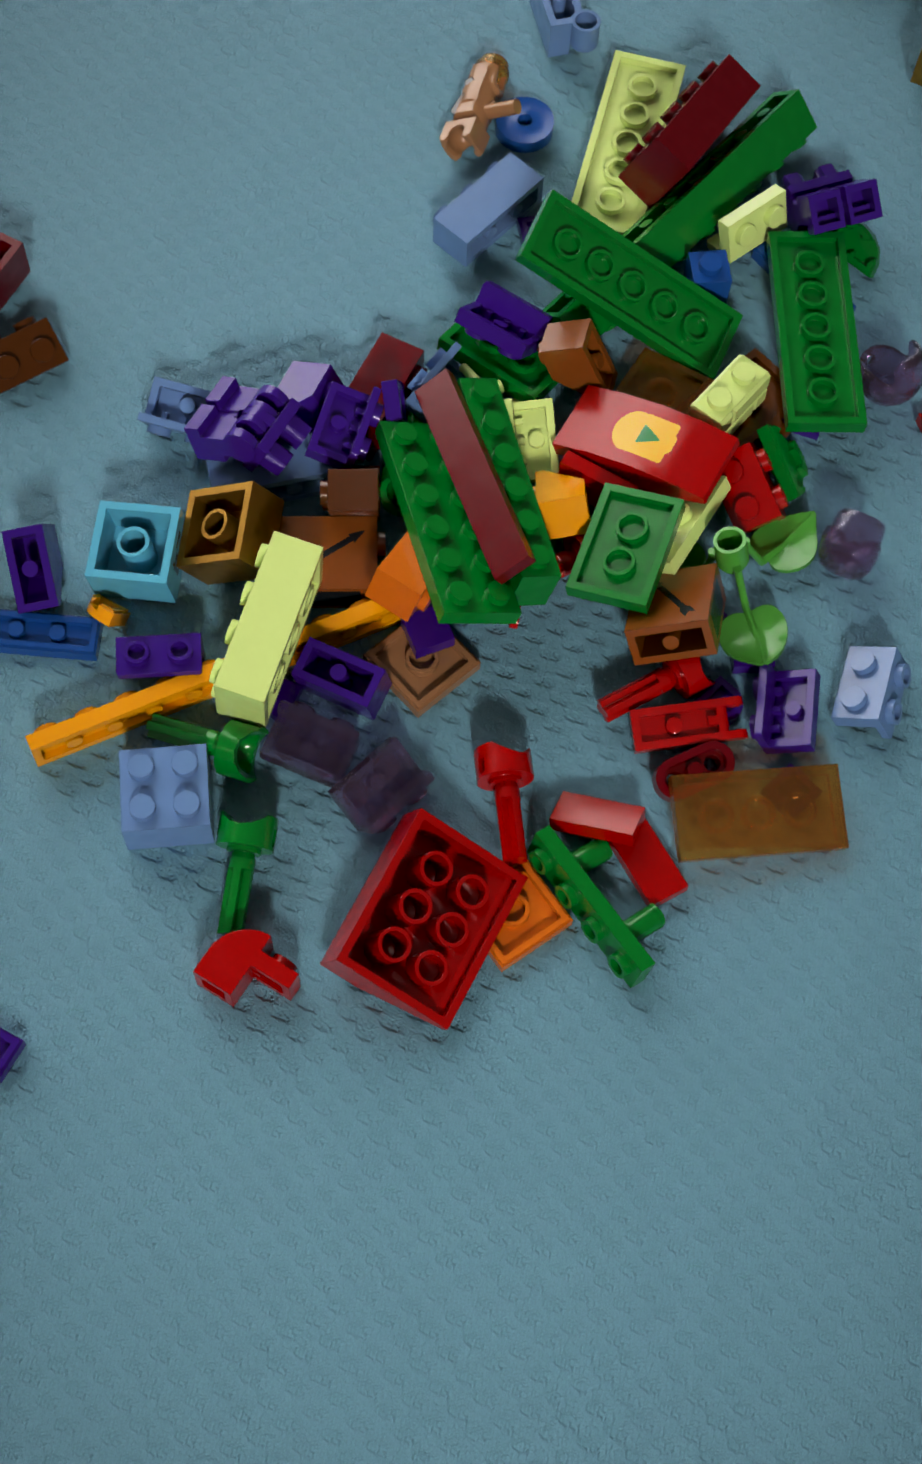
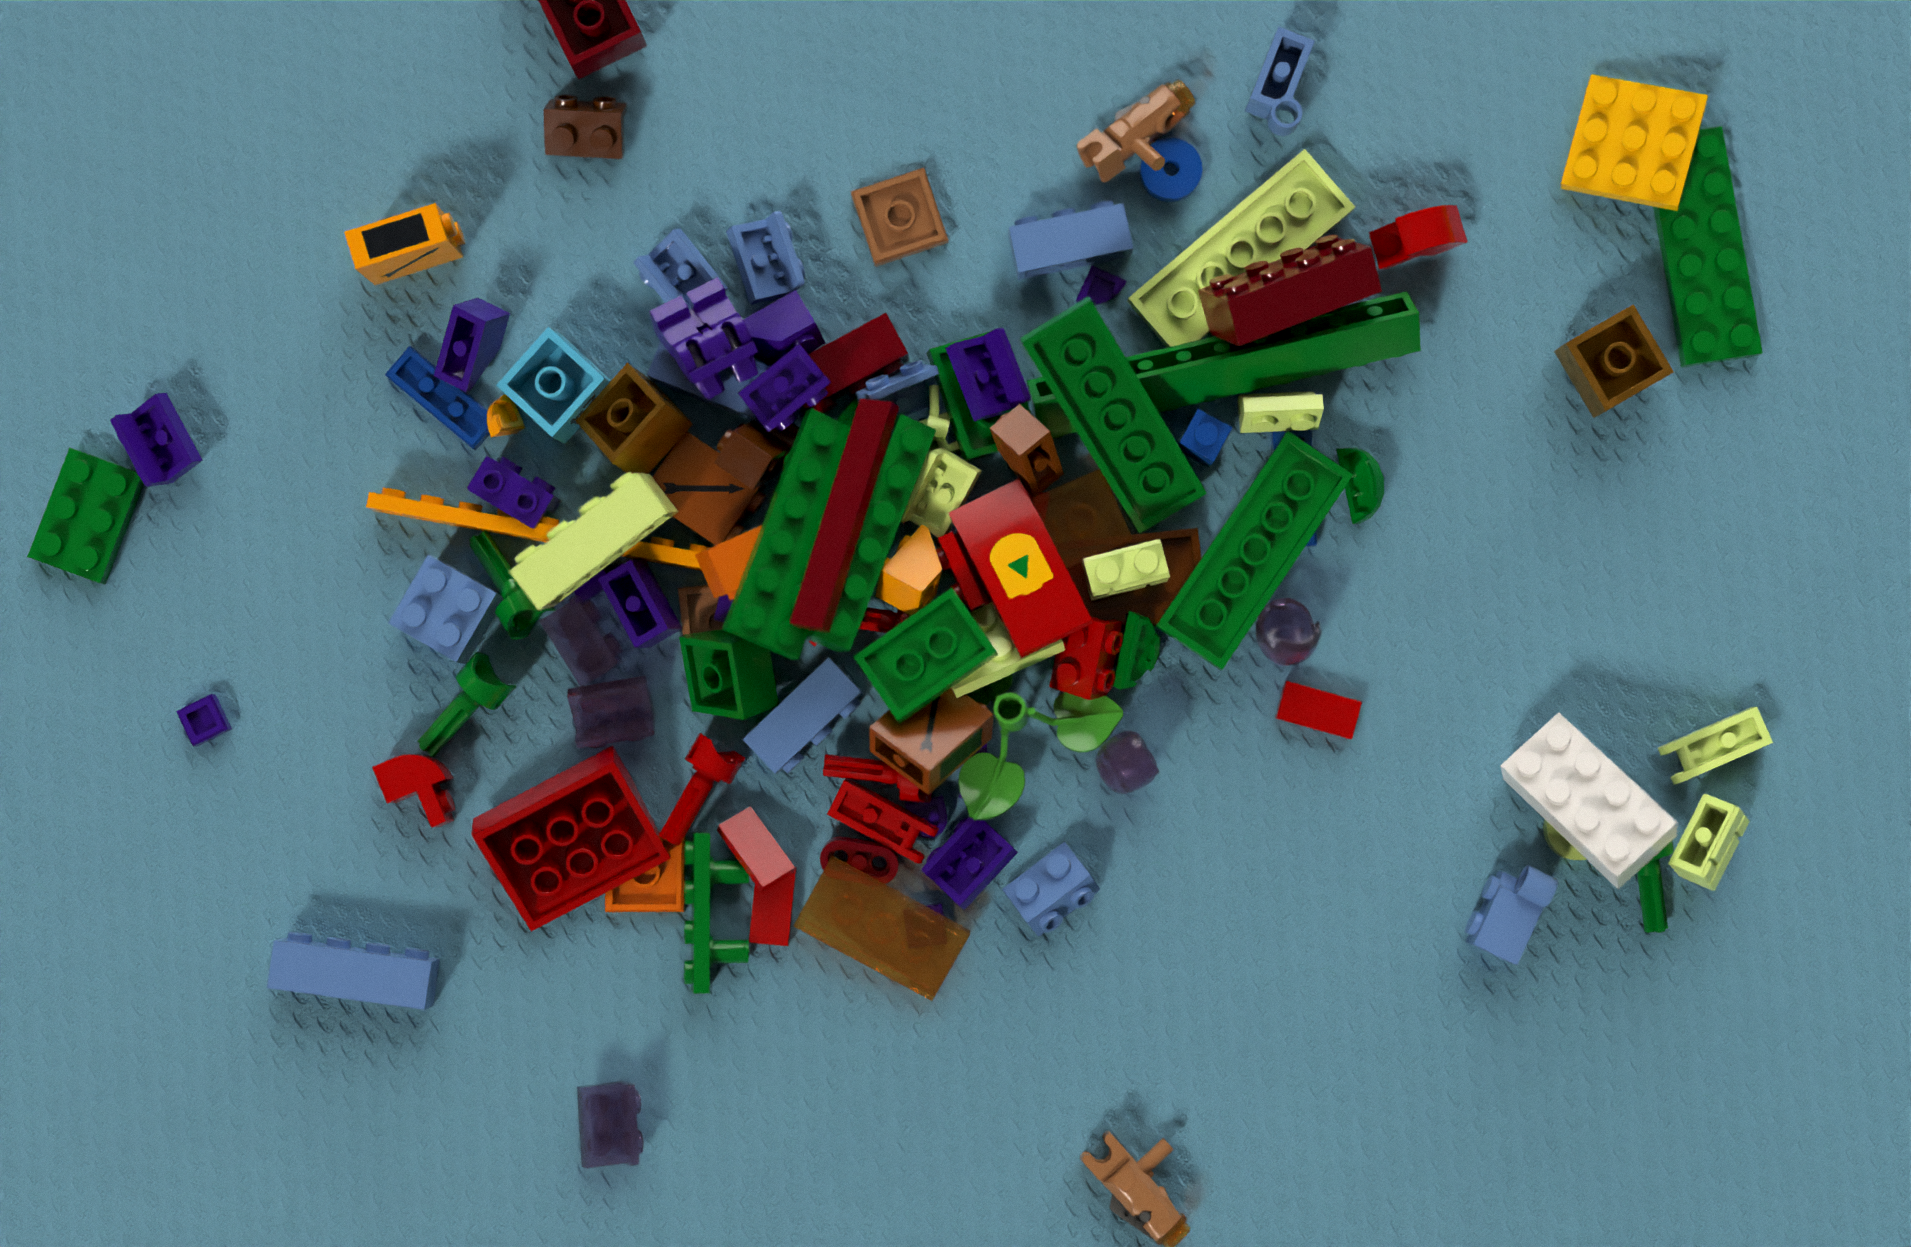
camera: 40 degrees right, 20 degrees up
(249, 354) = (766, 258): none -> medium blue bracket
(304, 1182) = (353, 972): none -> medium blue brick
(335, 274) = (899, 217): none -> medium nougat tile
(394, 400) = (841, 394): dark purple tile -> none
(461, 685) = (728, 674): none -> green slope
(554, 685) = (804, 717): none -> medium blue brick
(653, 1154) = (609, 1124): none -> clear purple bracket
(755, 47) = (1418, 234): none -> red brick
(829, 200) = (1365, 435): dark purple hips -> none

